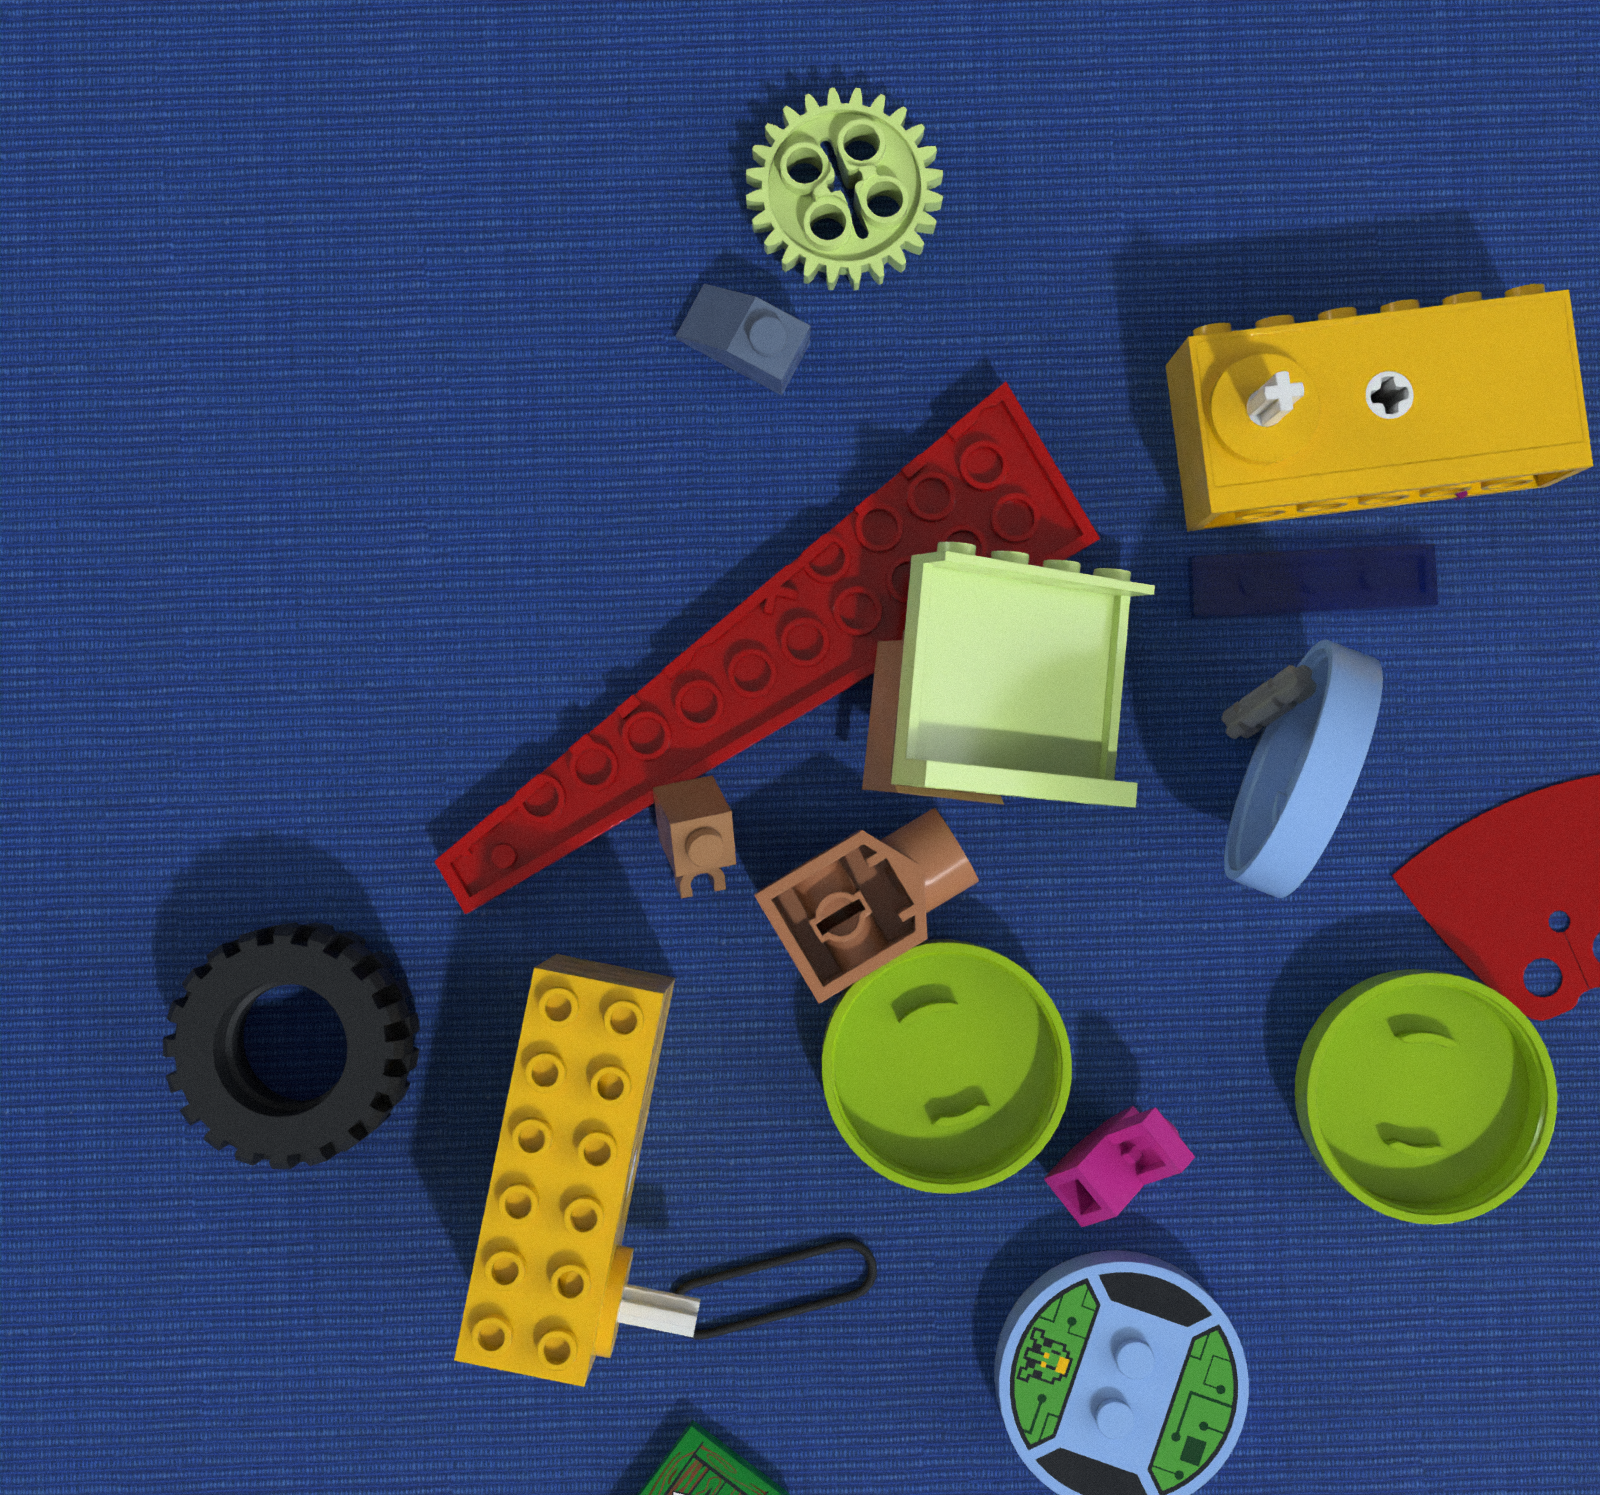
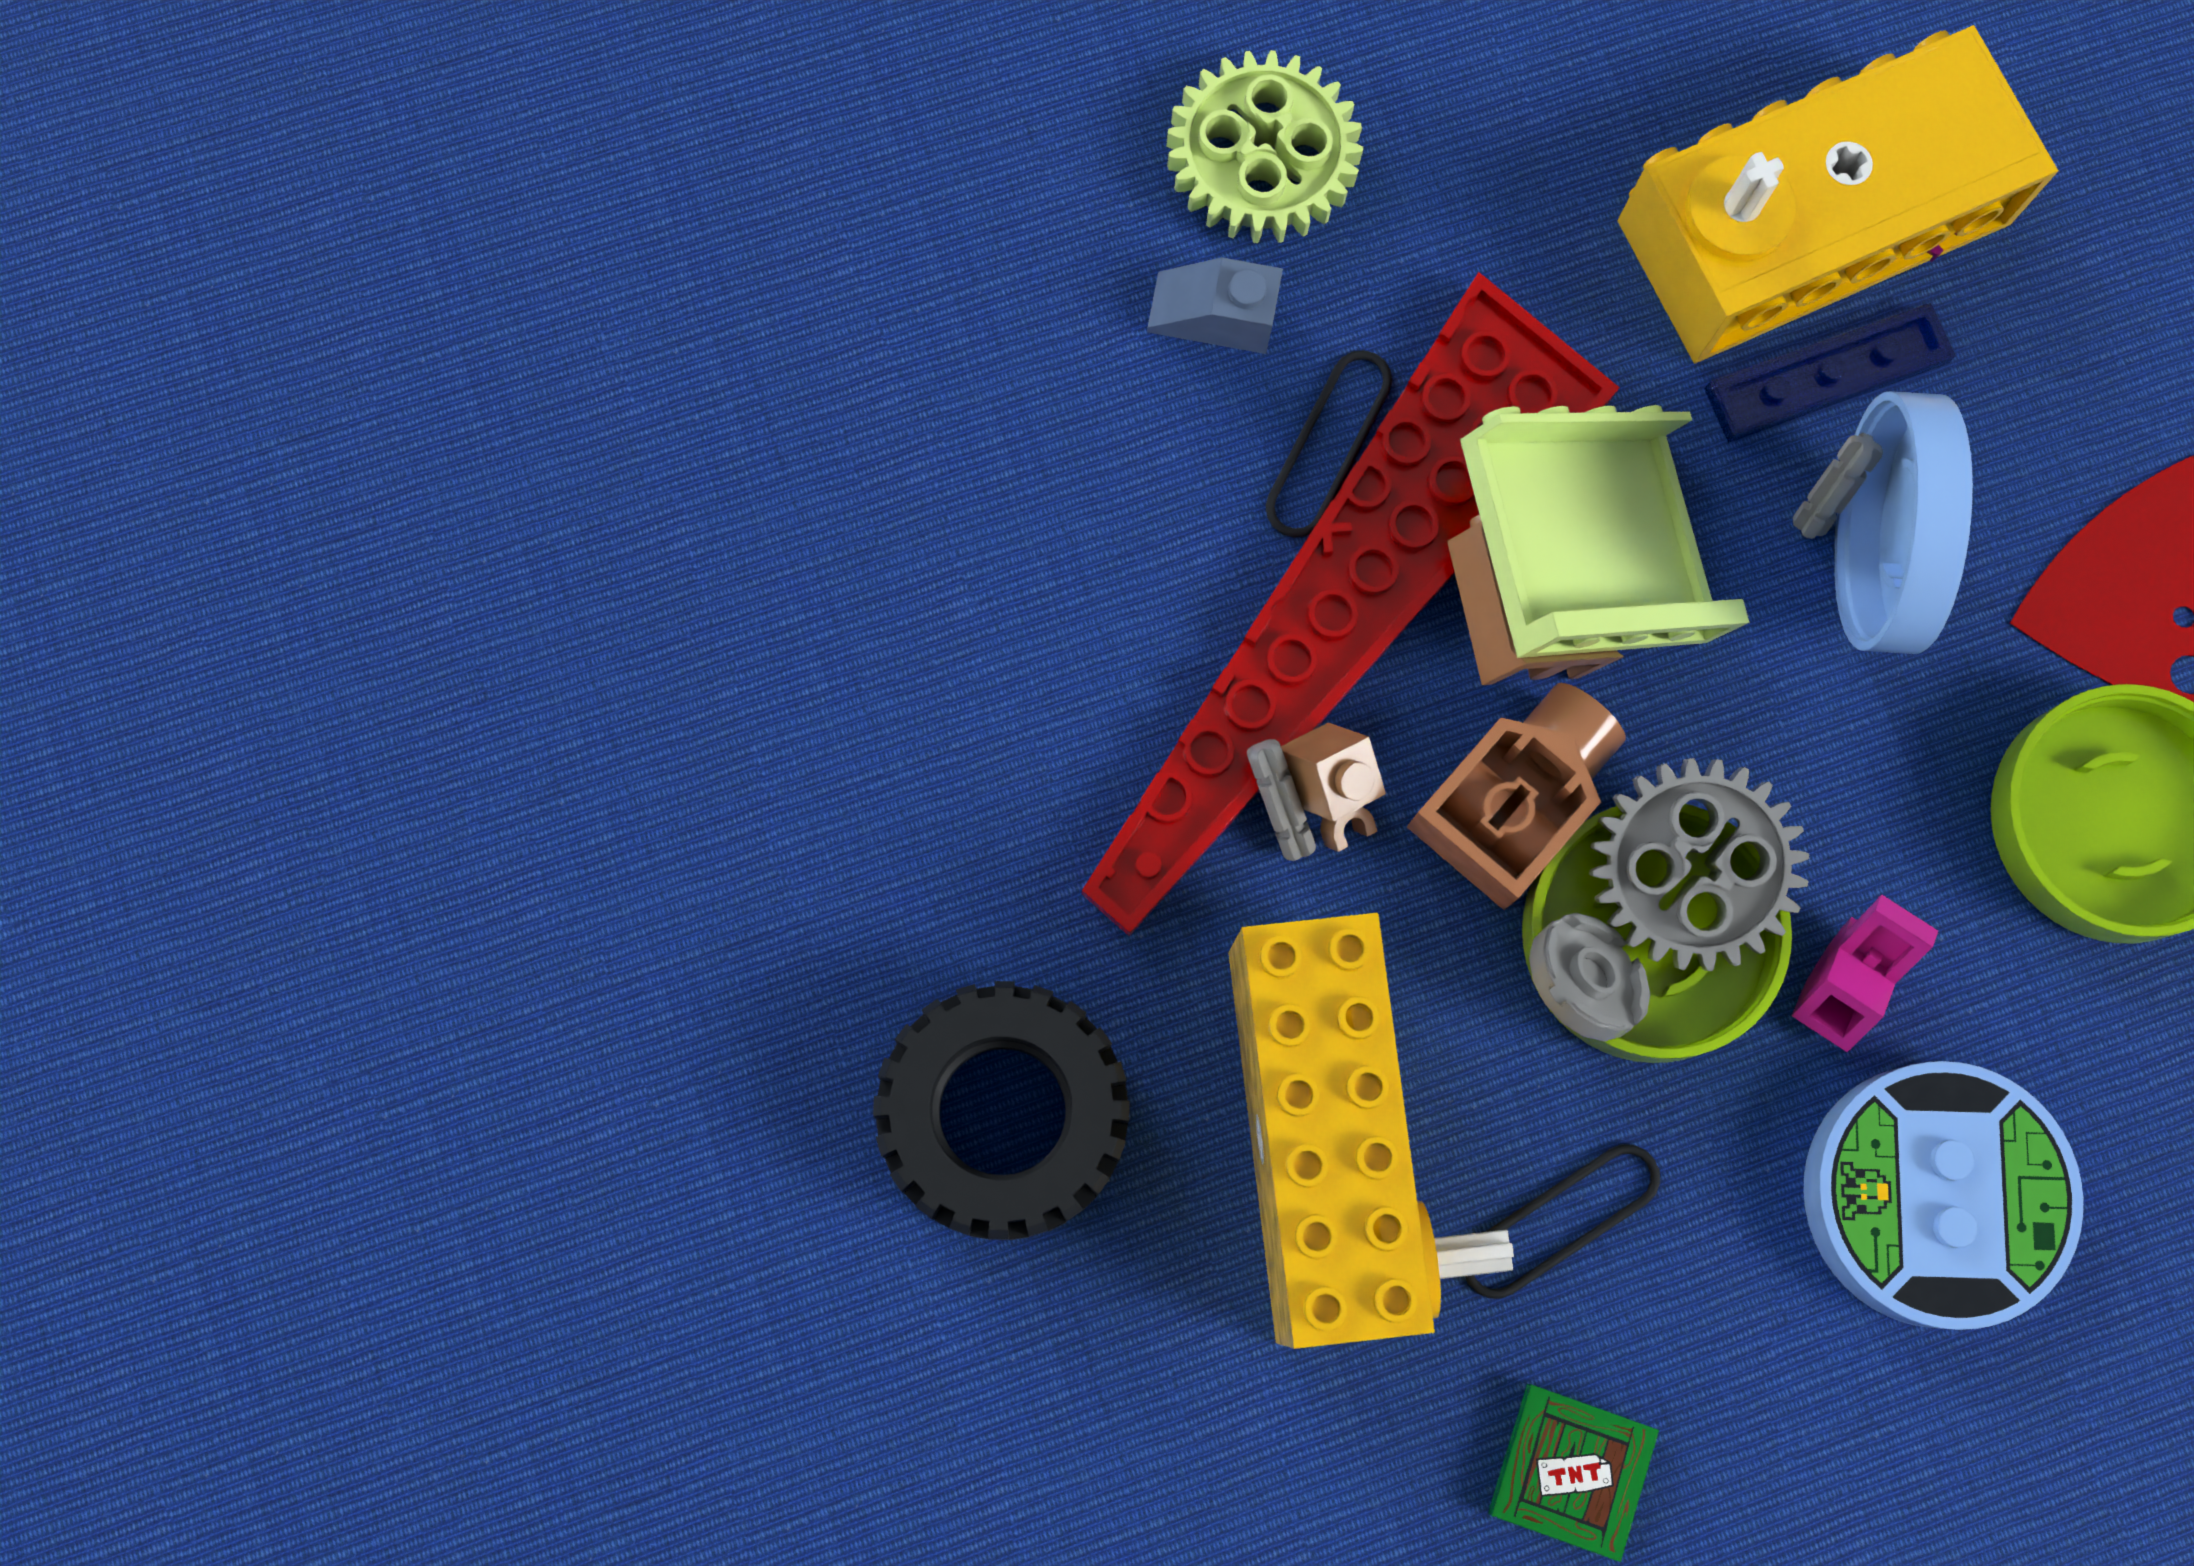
camera: 25 degrees left, 10 degrees down
(642, 835) = (1281, 799): none -> light grey axle
(795, 482) = (1305, 432): none -> black piece
(859, 1095) = (1589, 977): none -> light grey tile
(1029, 1070) = (1742, 904): none -> light grey gear

